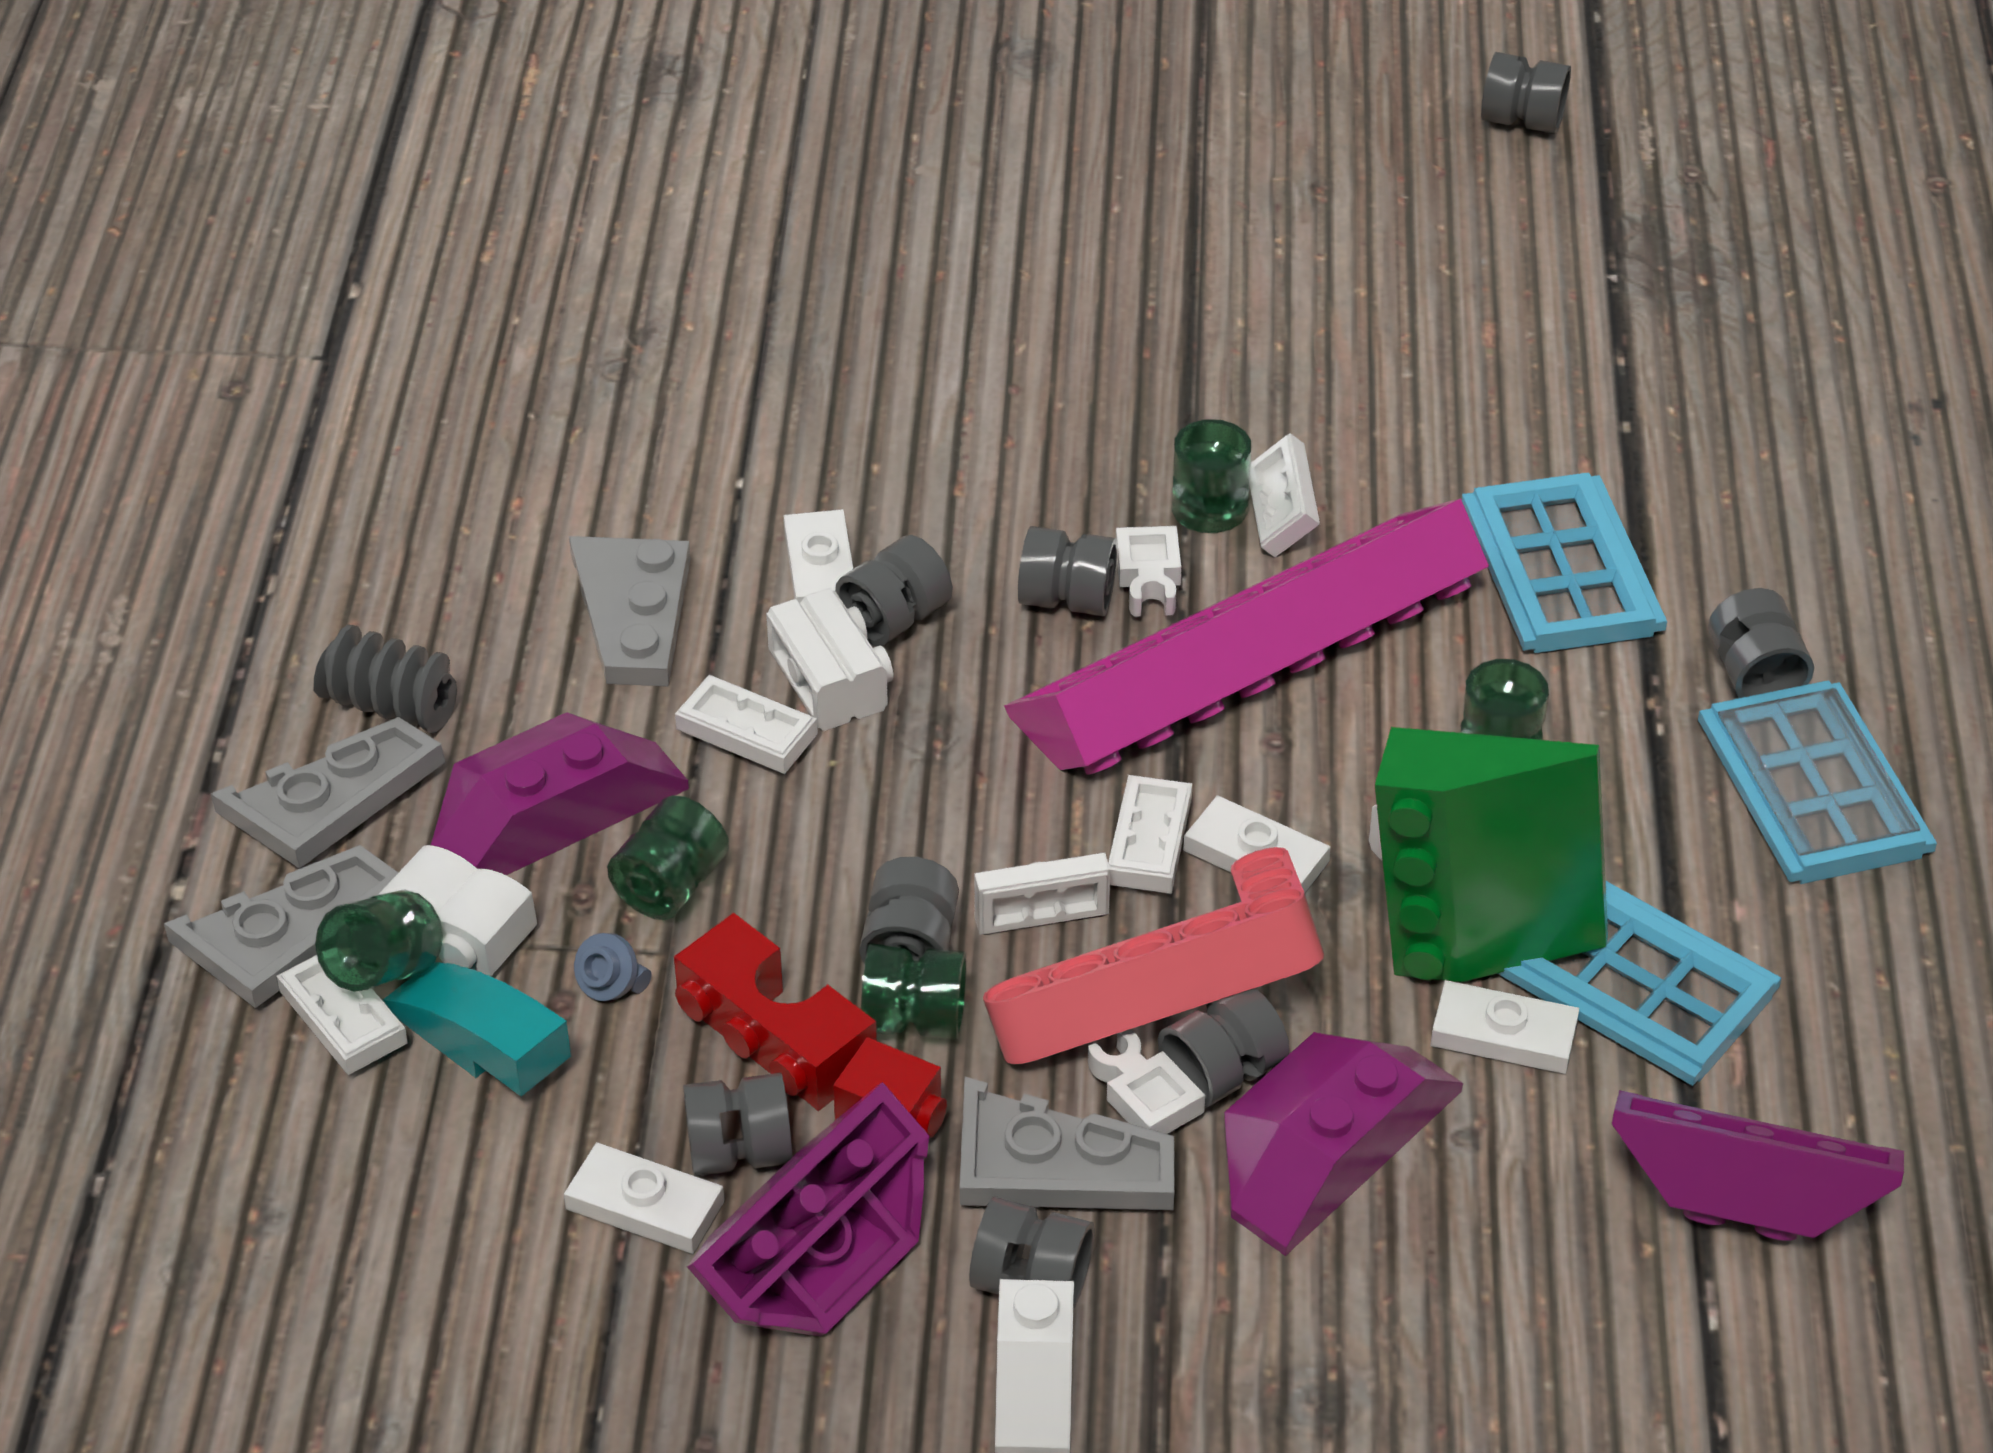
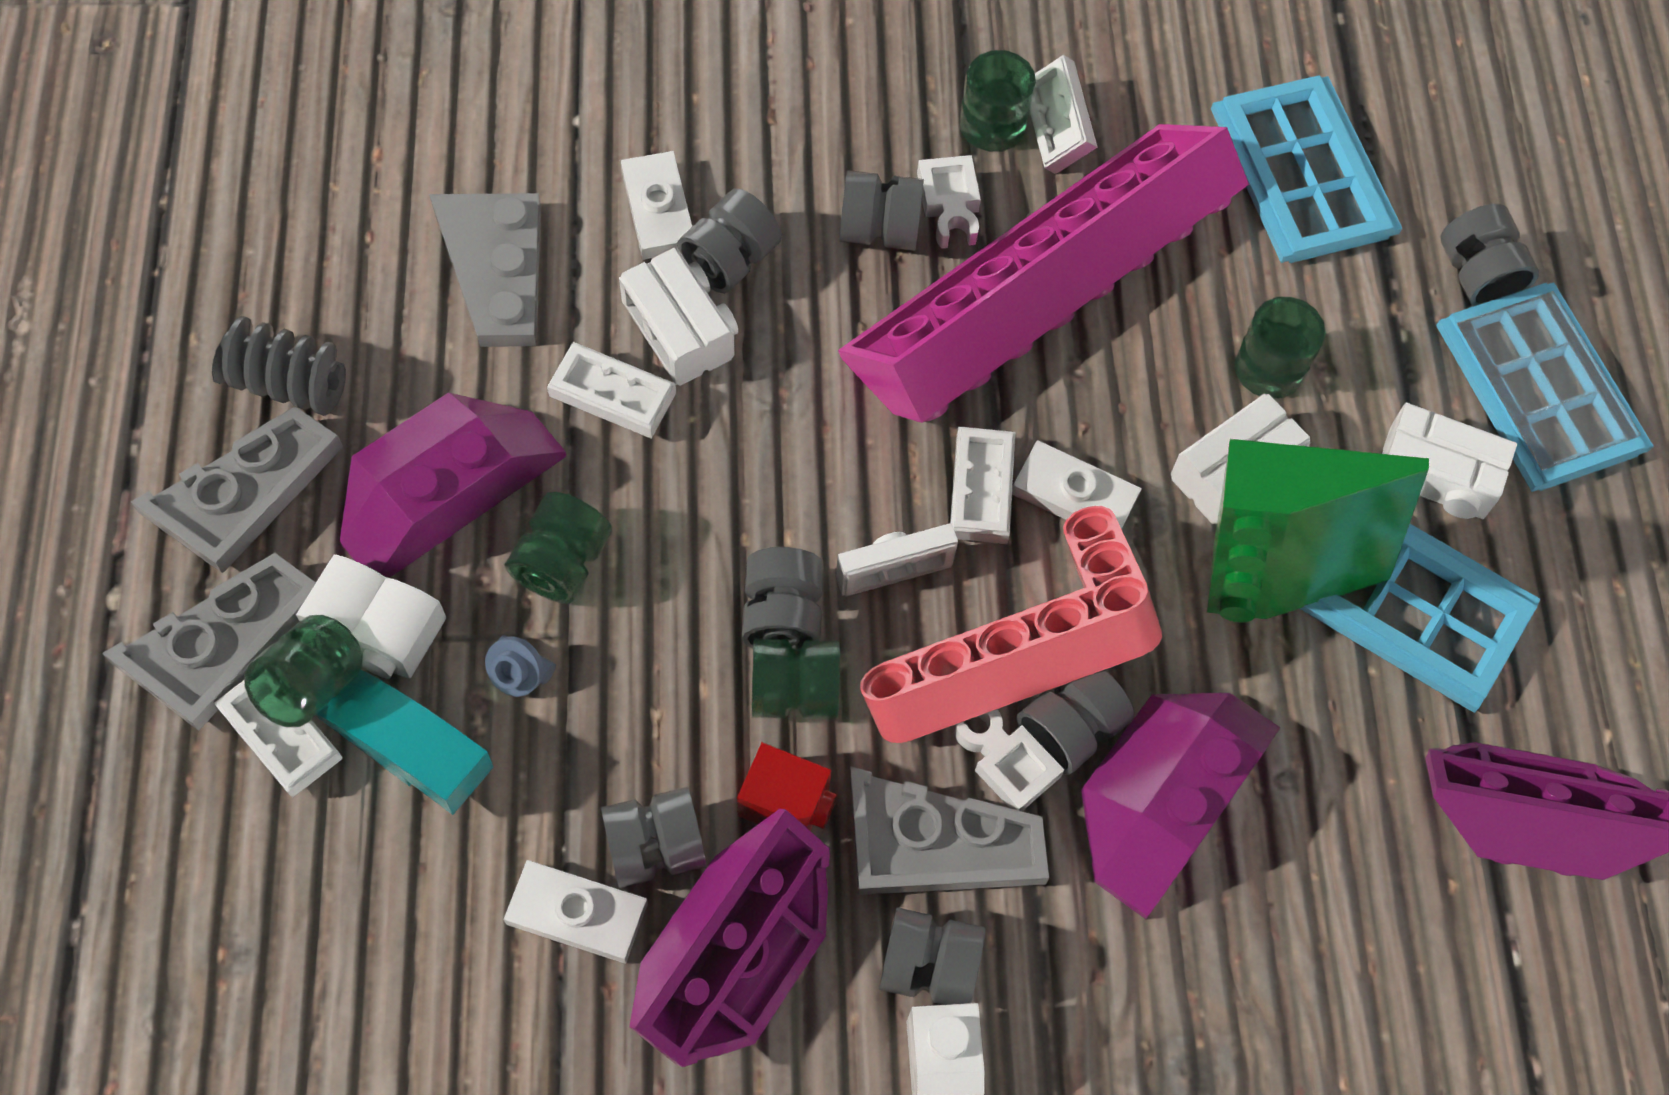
camera: 10 degrees left, 20 degrees up
(731, 984) = (707, 742): red arch -> none
(1505, 1027) = (1310, 666): white plate -> none
(1683, 839) = (1464, 461): none -> white brick

